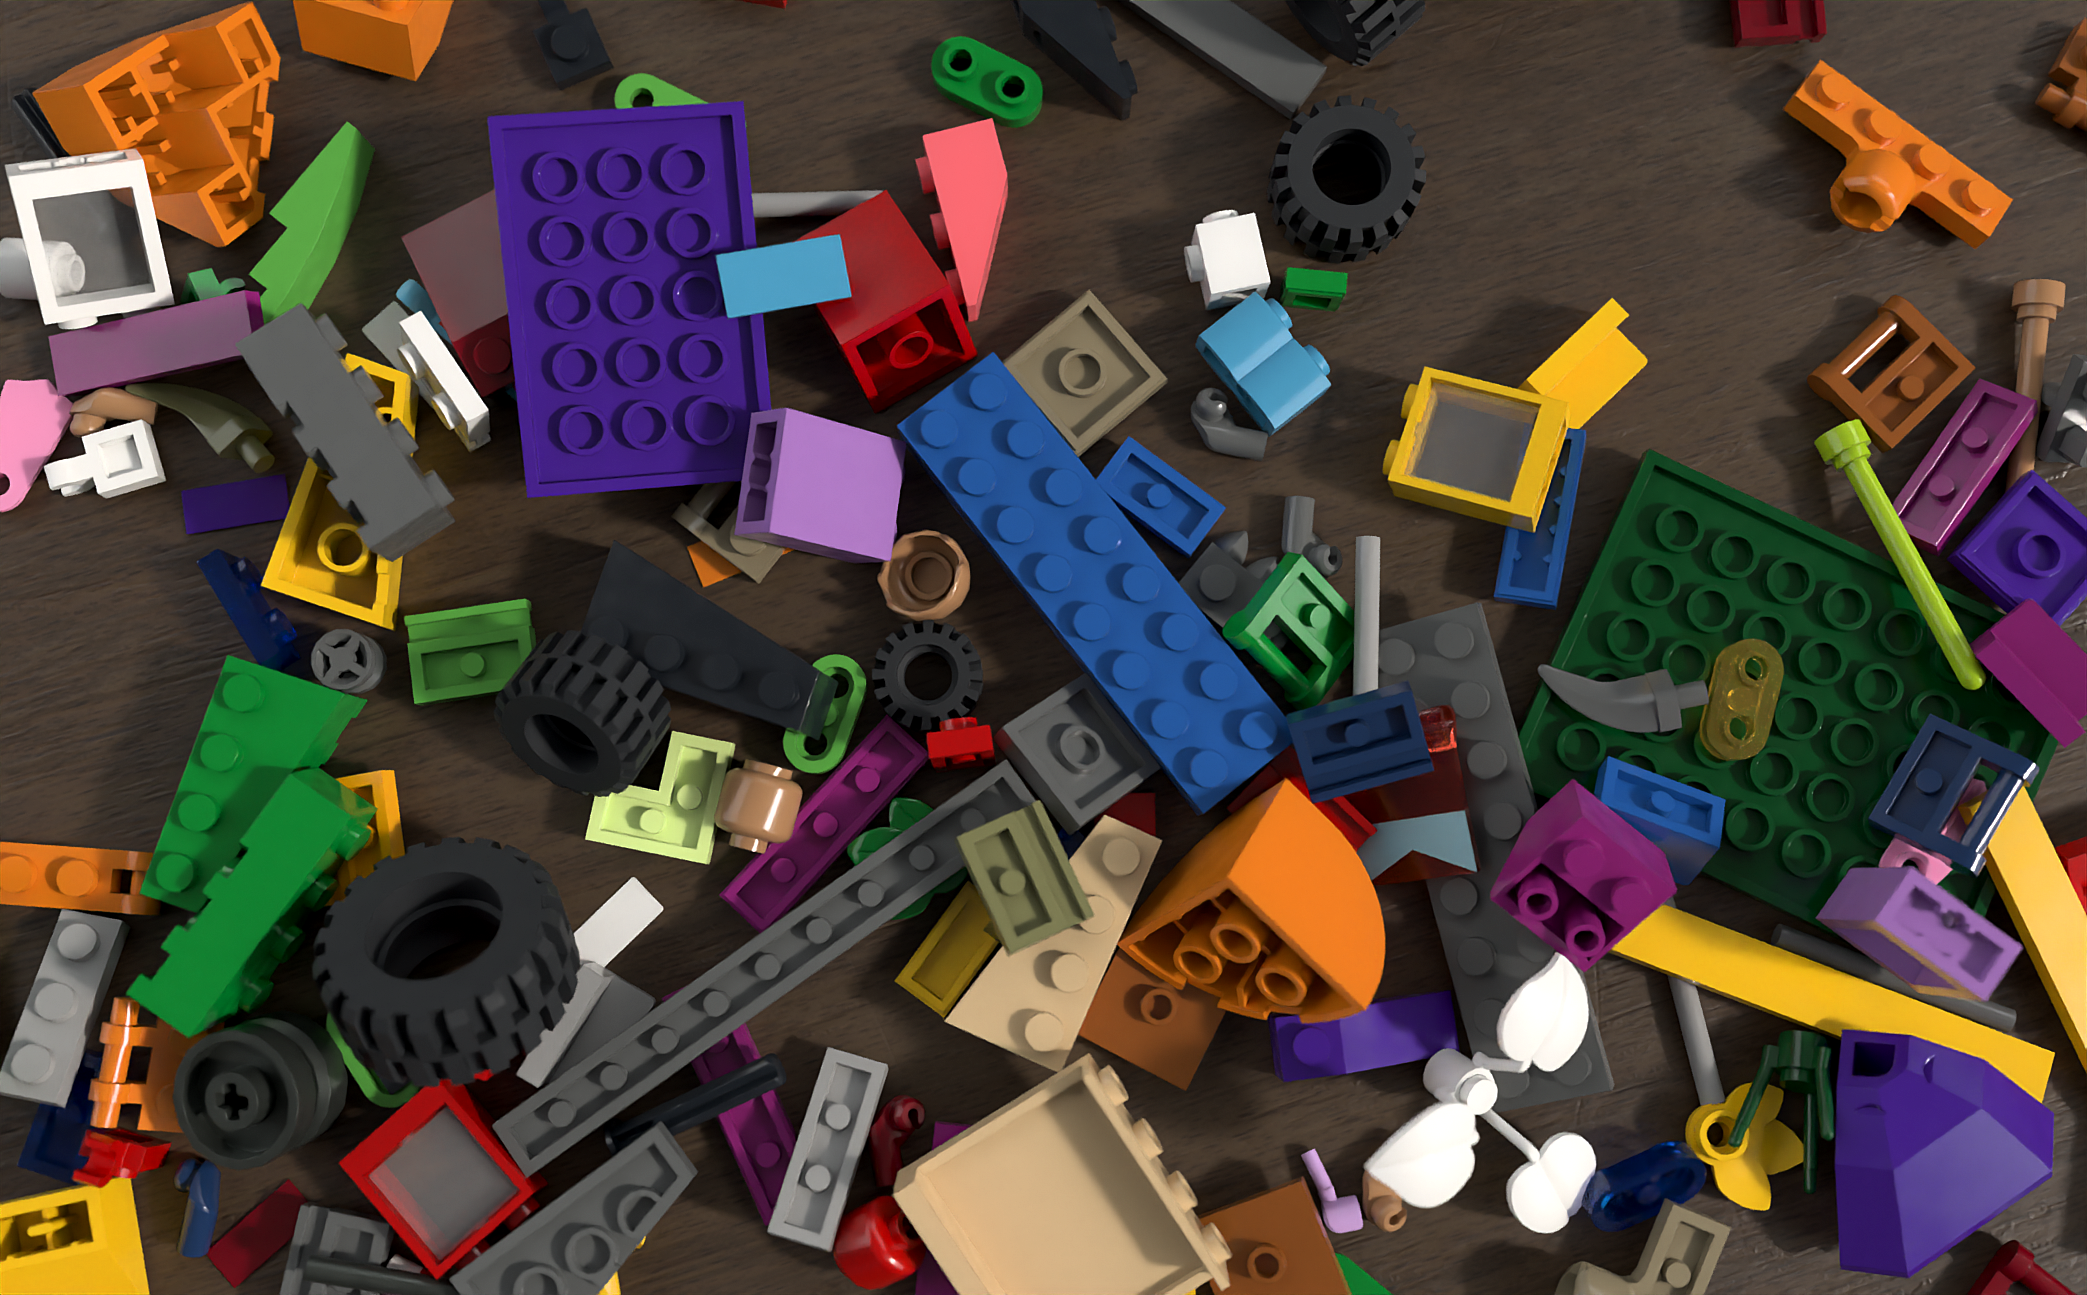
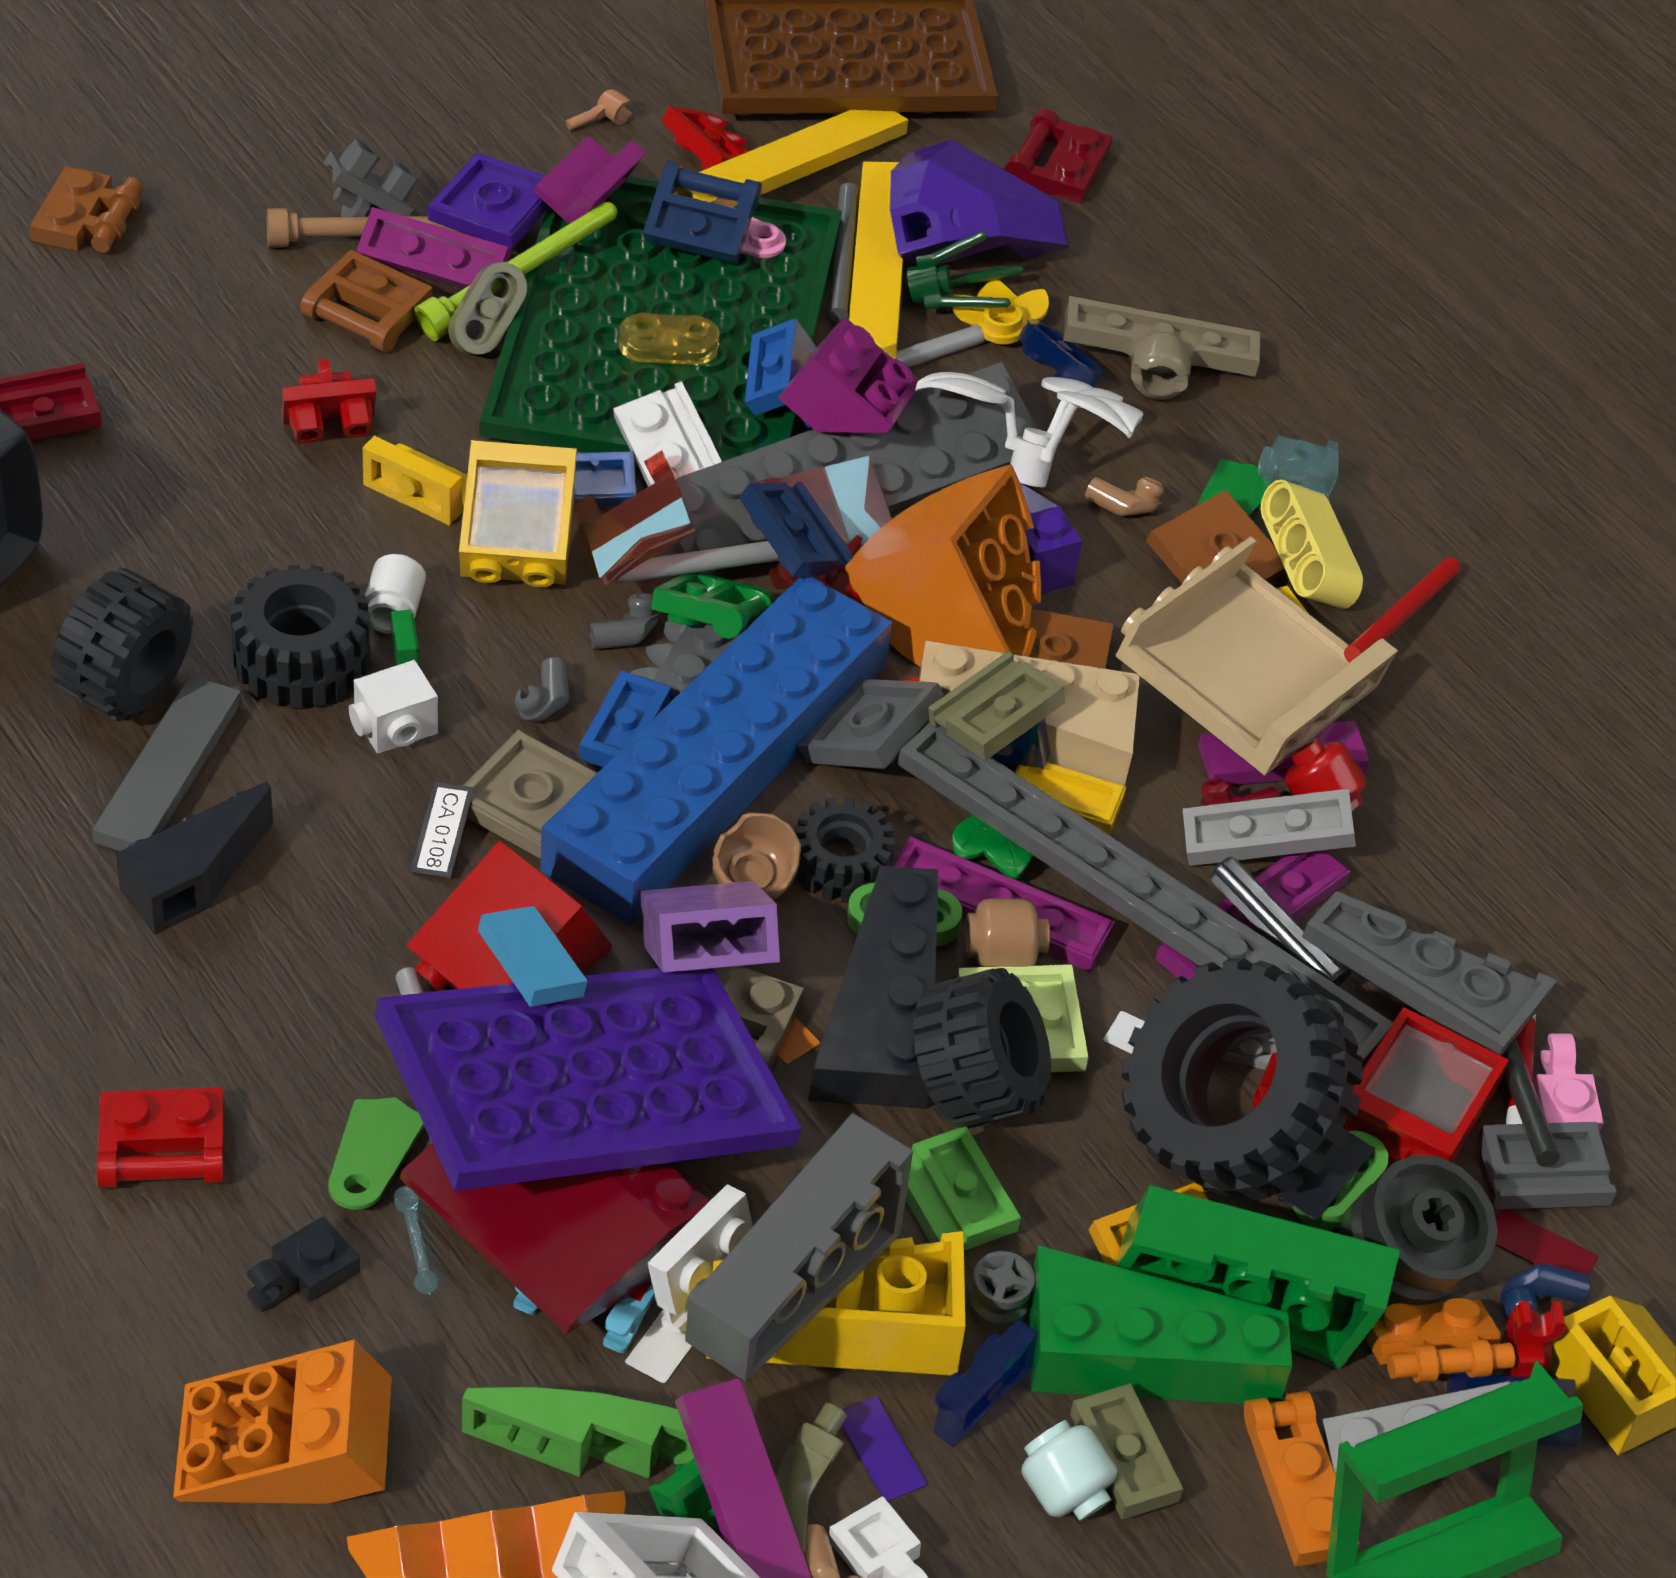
camera: 110 degrees left, 35 degrees down
(133, 655) = (1069, 1471): none -> light aqua head
(141, 718) = (1144, 1471): none -> olive plate
(961, 745) = (901, 788): red plate -> none
(971, 192) = (385, 897): coral slope -> none
(984, 81) = (267, 915): green plate -> none
(1055, 274) = (442, 829): none -> sticker
(1264, 362) = (483, 670): dark azure brick -> none
(1338, 1214) = (1155, 516): lavender hand -> none
(1399, 296) = (393, 586): none -> white brick
(1422, 572) = (639, 525): none -> clear red flag
(1564, 649) = (666, 424): none -> white plate
(1628, 704) = (699, 383): dark grey bar -> none
(1710, 263) = (328, 398): none -> red hips
(1839, 502) = (489, 312): none -> olive plate
(1891, 163) = (191, 312): orange plate -> none
(1909, 931) = (819, 198): medium lavender window -> none

